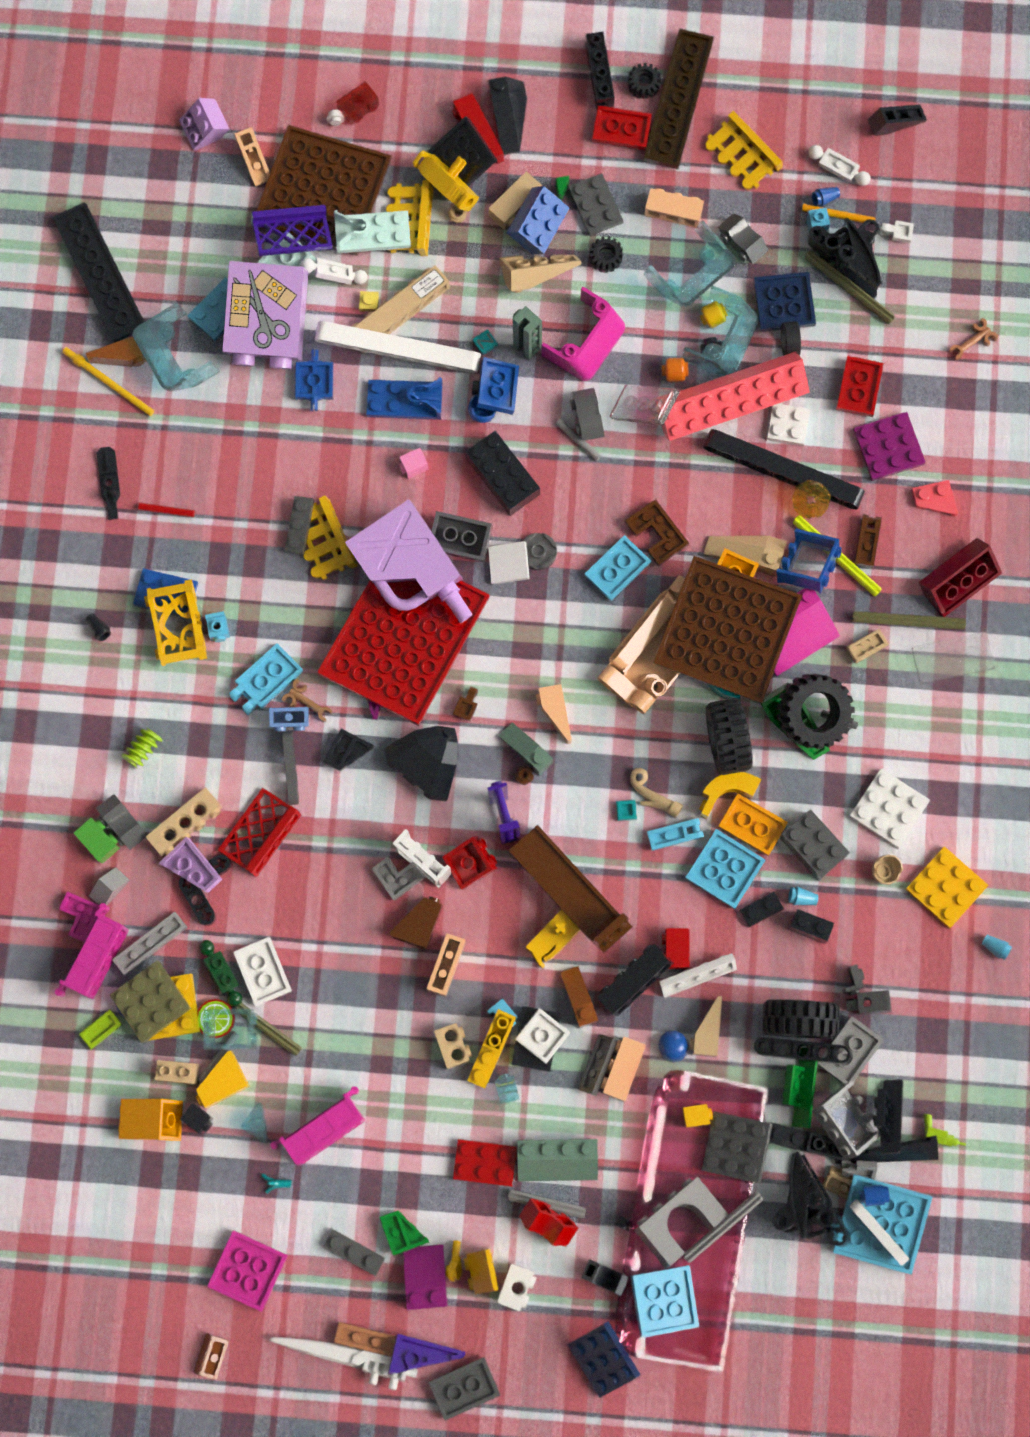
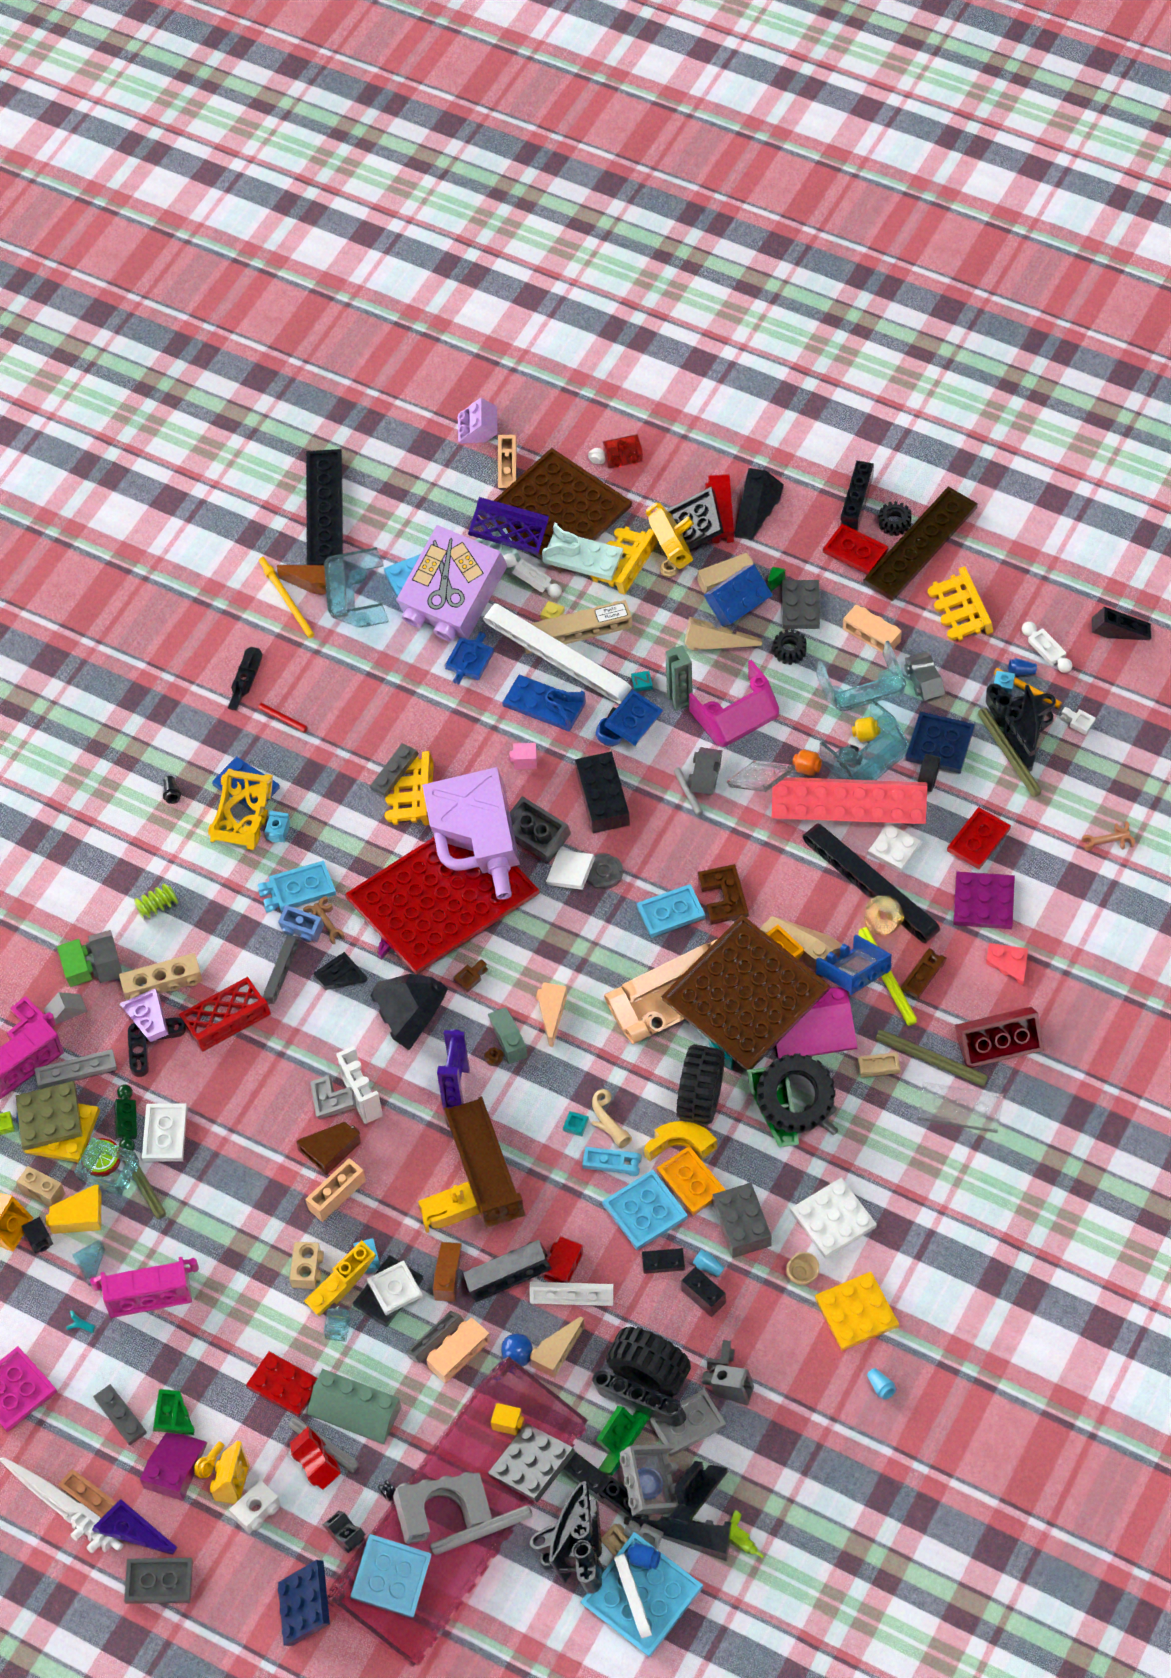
camera: 25 degrees right, 20 degrees down
(470, 862) = (405, 1110): red plate -> none

